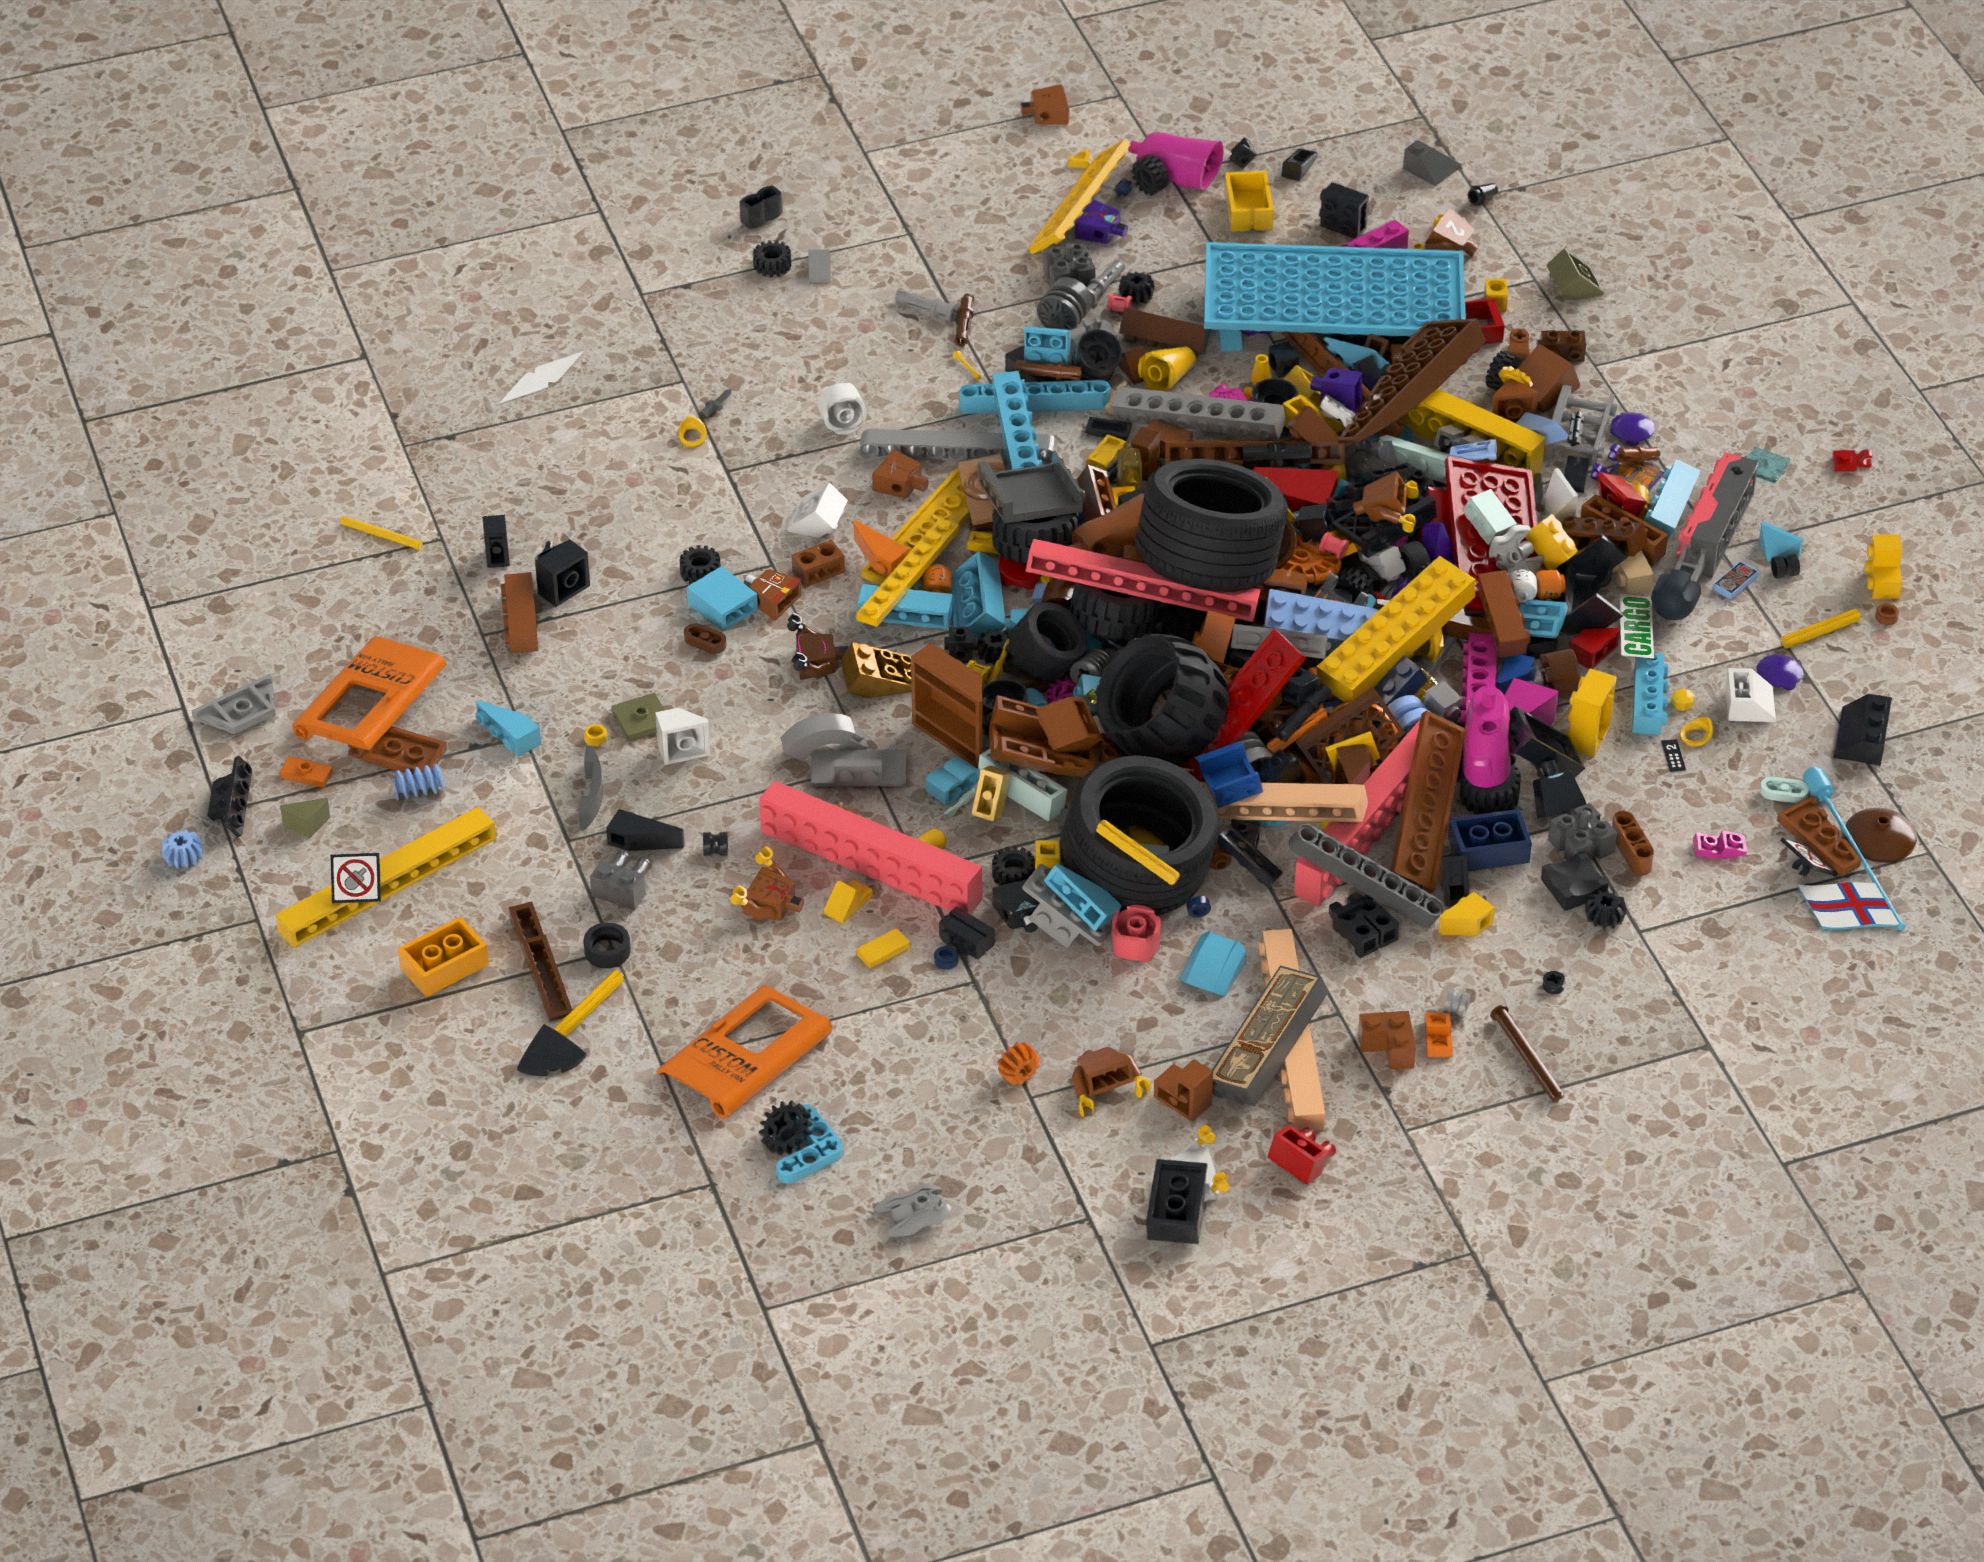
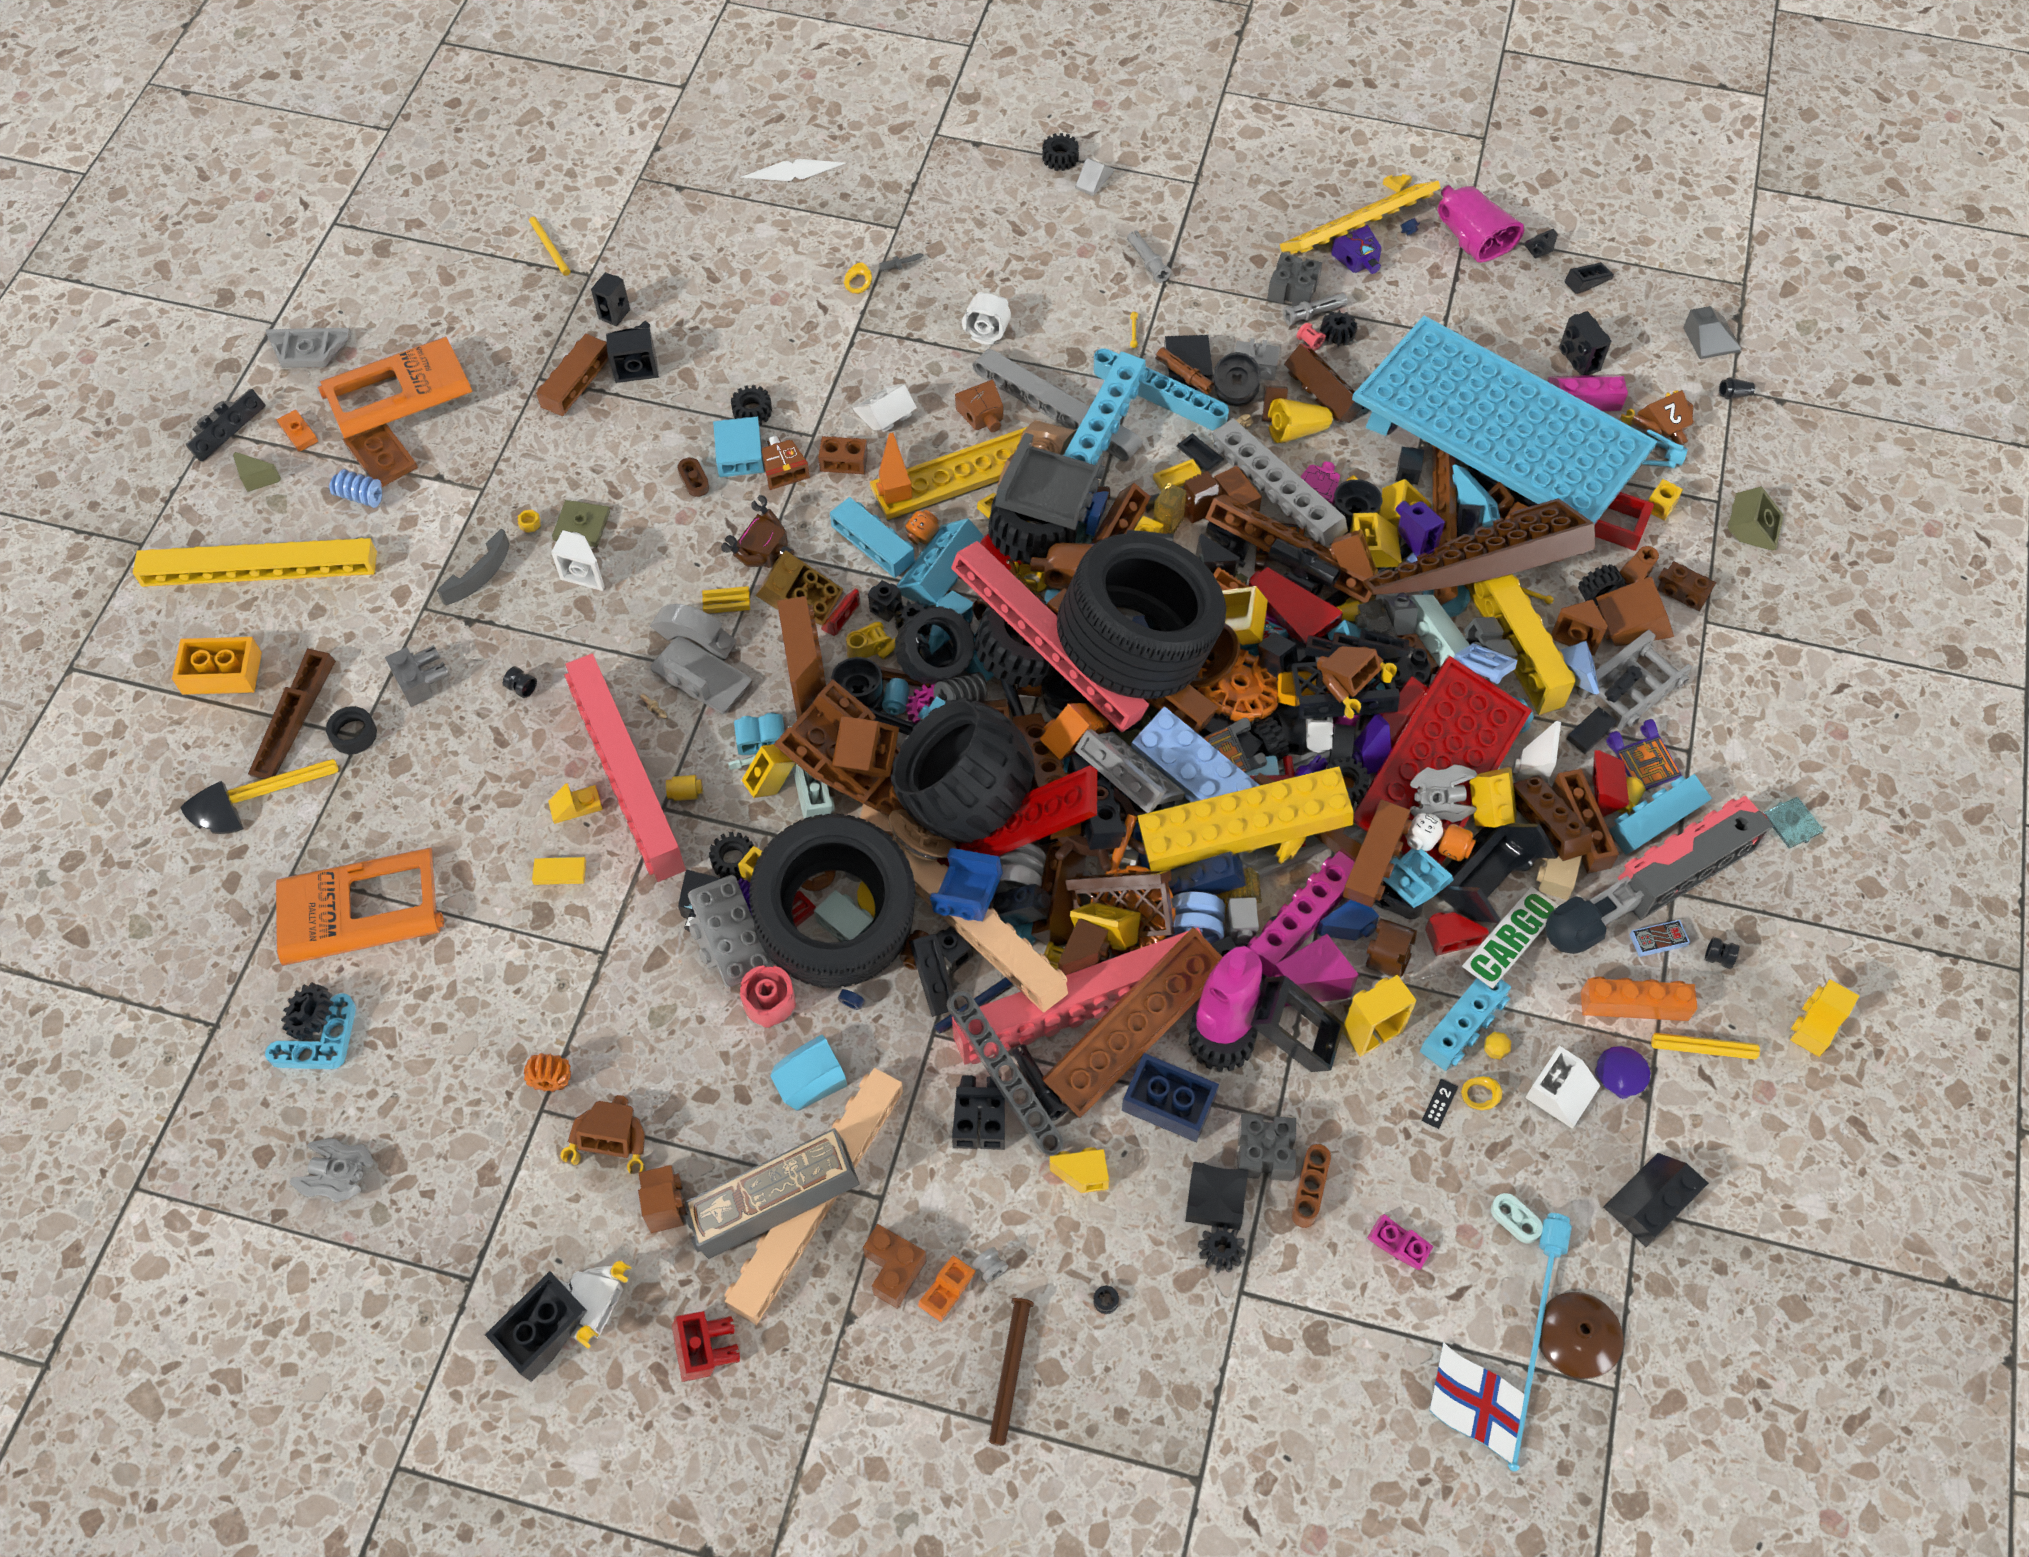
camera: 35 degrees right, 15 degrees up
(181, 848) = (143, 449): light blue gear -> none
(355, 878) = (207, 553): piece -> none
(512, 728) = (472, 484): medium azure slope -> none
(641, 833) = (471, 635): black slope -> none
(761, 207) = (1088, 100): black brick -> none
(769, 892) = (513, 759): dark orange torso -> none
(824, 704) = (726, 597): none -> yellow tile
(907, 572) = (894, 506): yellow plate -> none
(946, 957) = (600, 913): dark blue tile -> none
(965, 314) = (1172, 280): reddish brown pin -> none
(966, 933) = (633, 901): black brick -> none
(1047, 105) = (1409, 119): dark orange torso -> none
(1047, 345) = (1197, 346): medium azure slope -> none
(1064, 304) = (1255, 315): dark grey wheel -> none
(1083, 896) = (739, 939): medium azure slope -> none
(1137, 852) = (782, 931): yellow axle -> none
(1150, 175) = (1438, 225): black tyre -> none
(1248, 201) = (1506, 292): yellow piece -> none
(1260, 369) = (1378, 468): yellow cone -> none
(1286, 876) = (980, 1000): none -> dark blue bar
(1308, 707) = (1080, 860): black pin -> none
(1314, 720) = (1075, 870): orange axle -> none
(1333, 408) = (1397, 544): white plate -> none
(1334, 545) = (1275, 689): coral bush -> none
(1455, 879) = (1102, 1122): black slope -> none
(1476, 259) = (1674, 452): none -> medium azure plant
(1488, 515) = (1442, 741): light aqua brick -> none
(1509, 372) = (1600, 601): yellow gear -> none
(1539, 494) = (1531, 734): black bar -> none
(1556, 791) = (1277, 1082): black torso -> none
(1632, 427) = (1688, 709): dark purple dish -> none
(1638, 454) = (1666, 744): dark orange pin -> none
(1754, 621) = (1638, 999): none -> orange brick
(1778, 542) = (1735, 923): medium azure slope -> none
(1808, 859) = (1474, 1321): piece -> none
(1814, 830) = (1511, 1287): dark orange wing -> none
(1849, 461) = (1885, 865): red plate -> none
(1887, 614) = (1790, 1069): dark orange tile -> none

